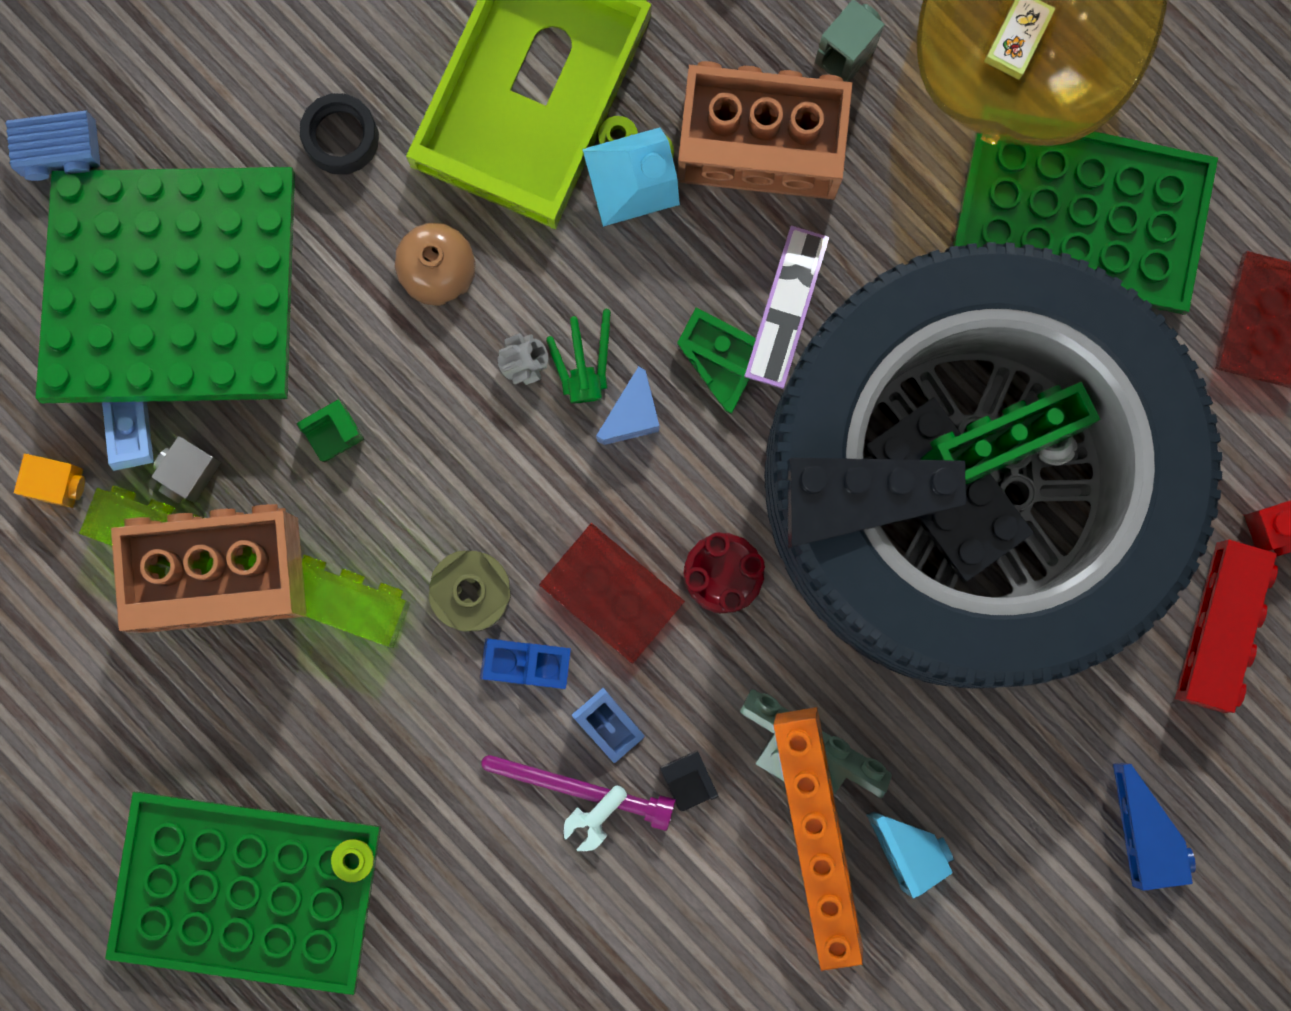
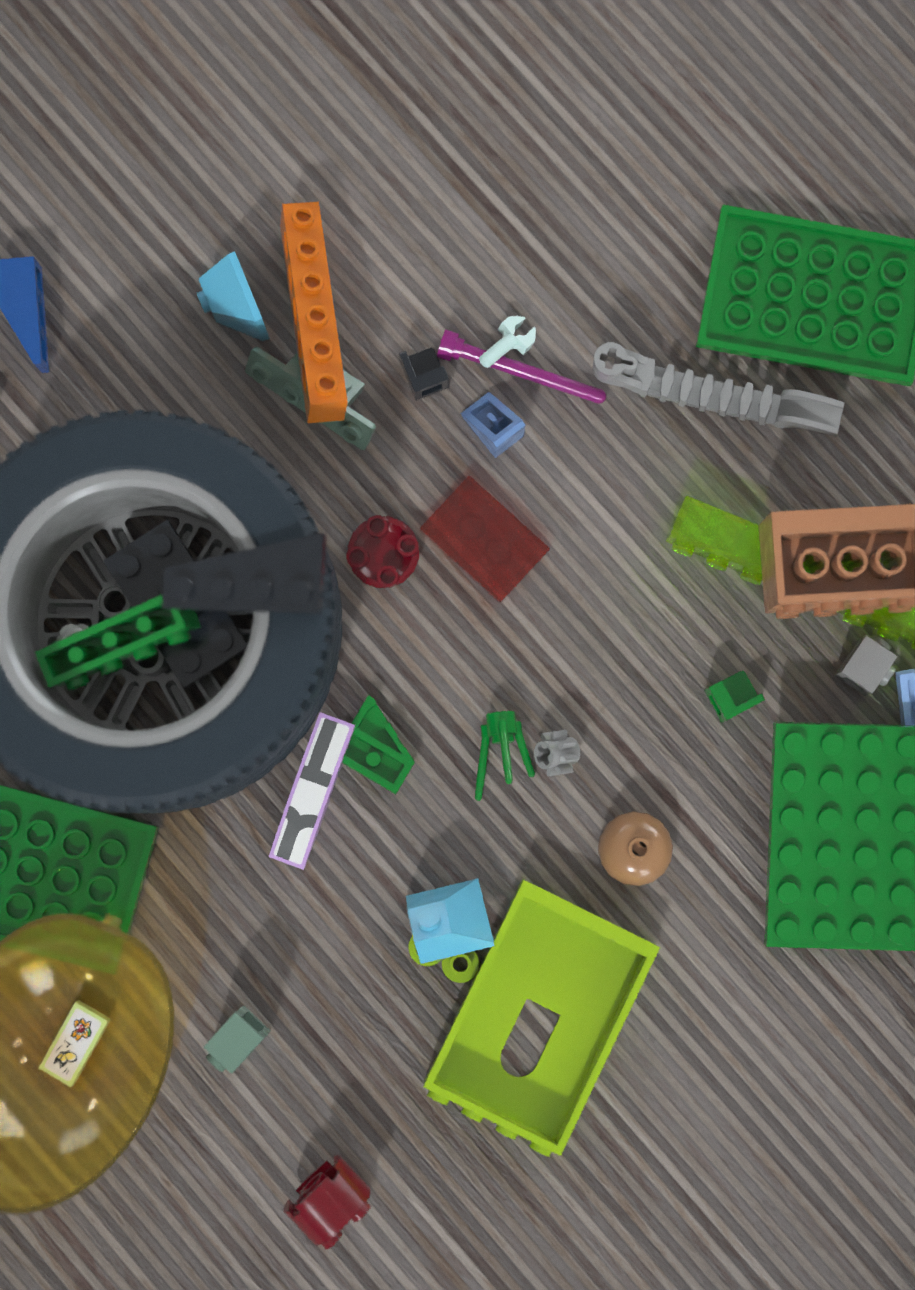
camera: 175 degrees left, 0 degrees up
(329, 105) = (748, 964): black tyre -> none
(365, 856) = (716, 323): lime plate -> none
(389, 775) = (788, 410): none -> light grey piece
(474, 568) = (614, 525): olive plate -> none
(525, 663) = (564, 480): blue slope -> none
(632, 414) = (458, 698): medium blue slope -> none
(764, 130) = (316, 930): nougat brick -> none

